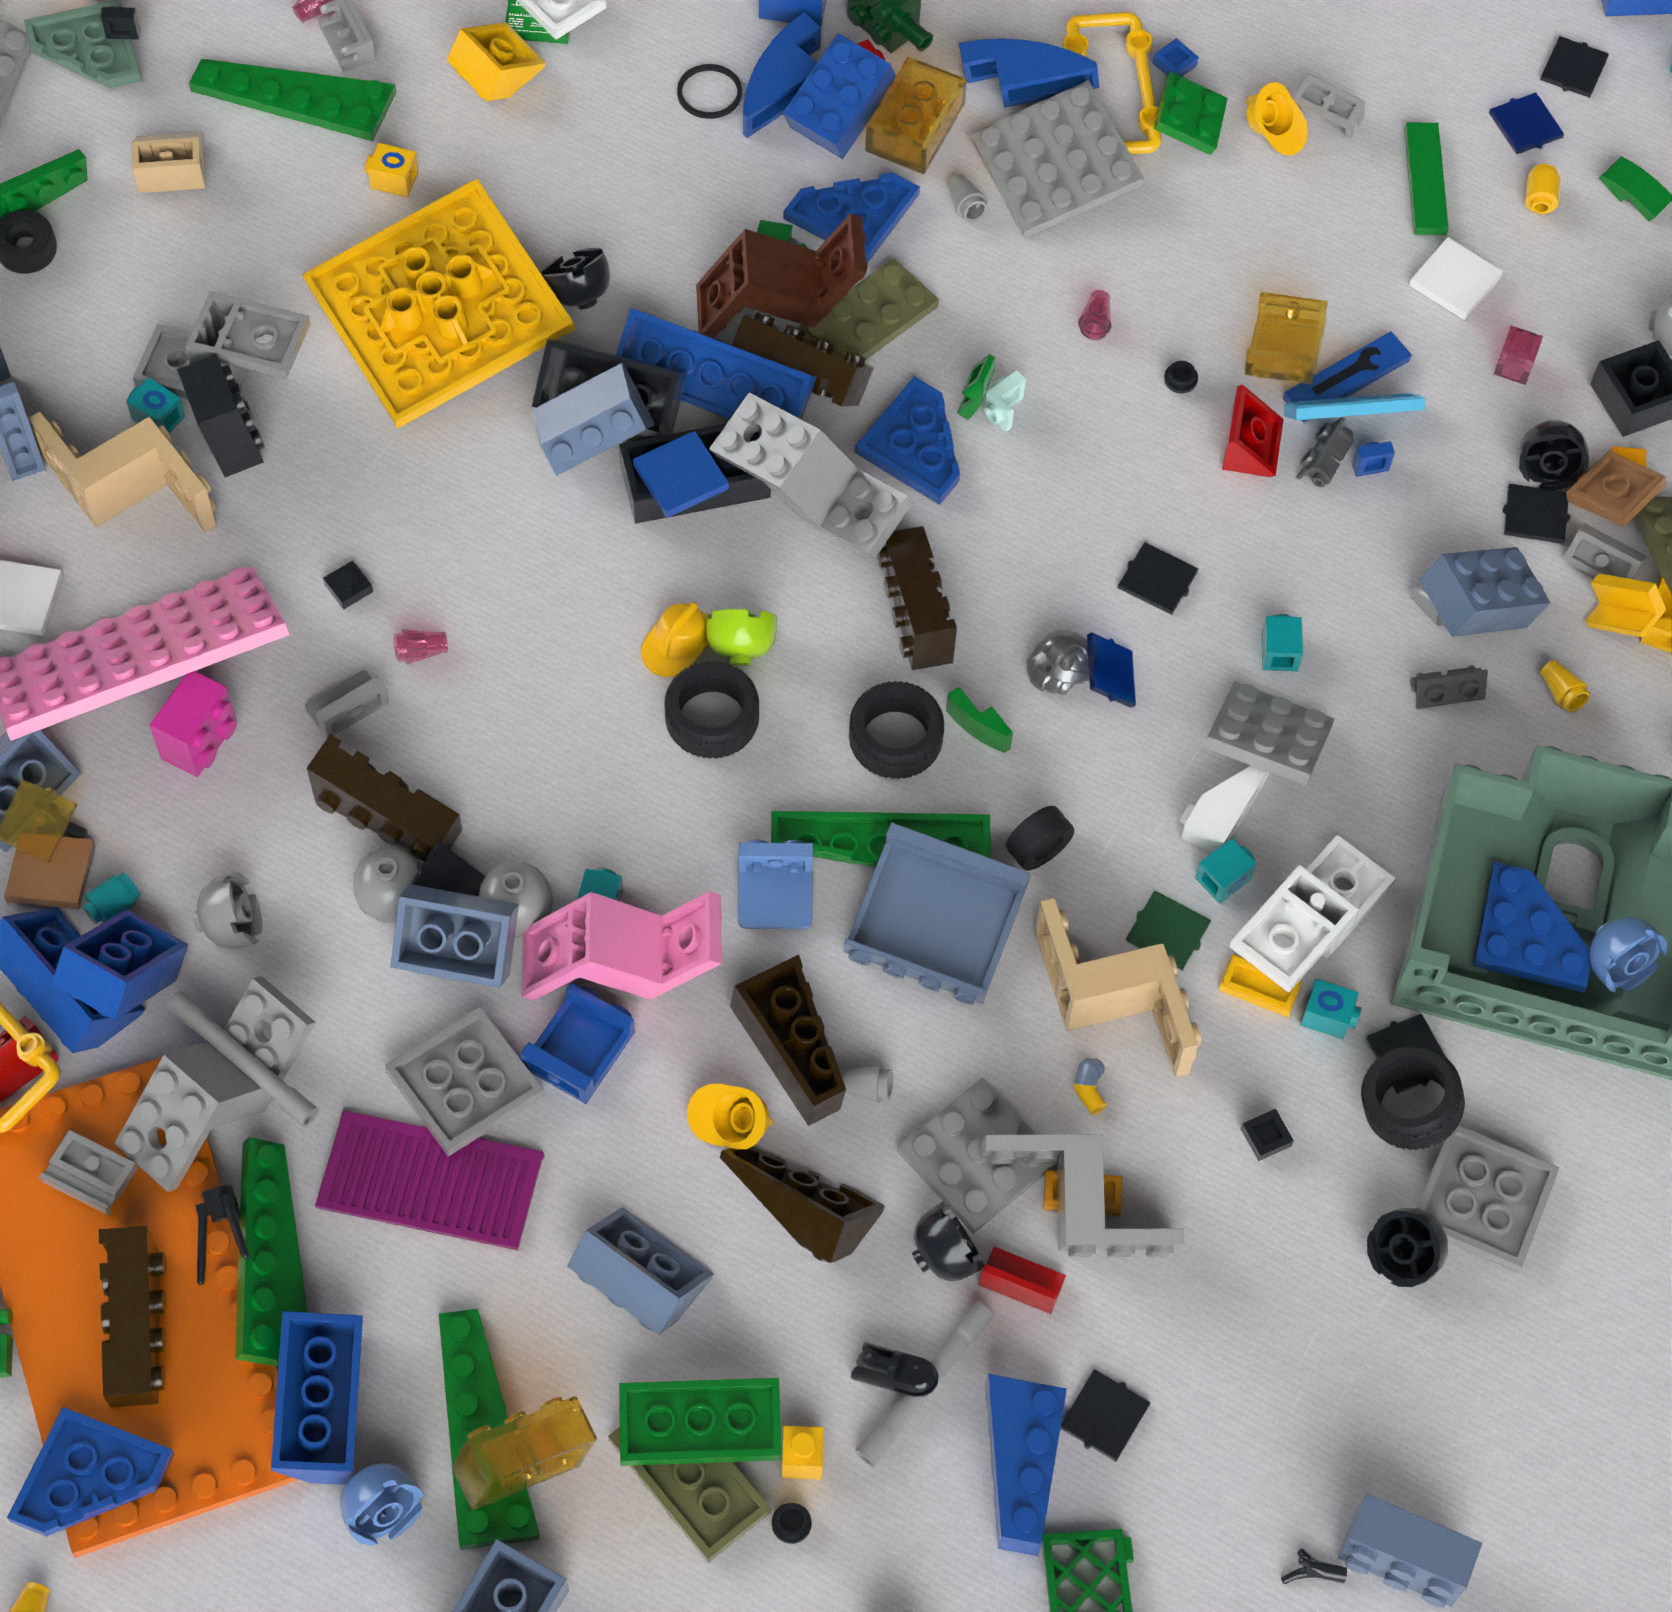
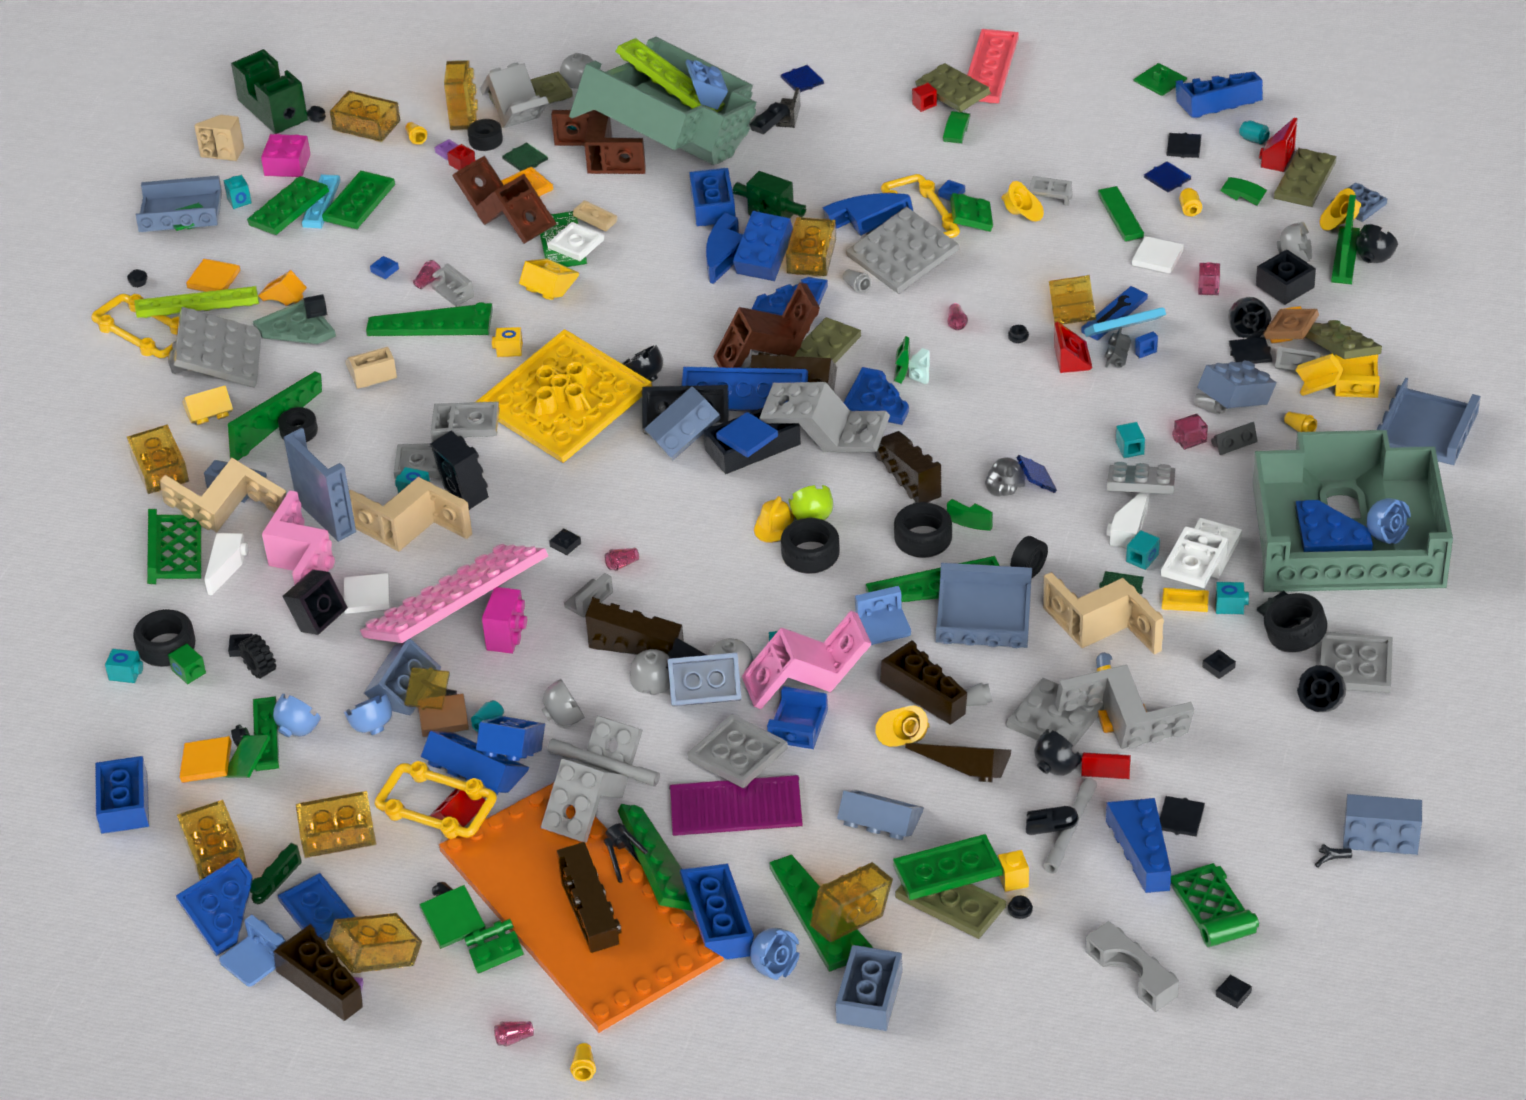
camera: 10 degrees left, 20 degrees down
(85, 1473) = (591, 981): blue plate -> none
(88, 1172) = (531, 843): light grey plate -> none
(709, 67) = (679, 256): black piece -> none
(1158, 578) = (1044, 430): black piece -> none
(1382, 654) = (1190, 431): none -> clear pink brick

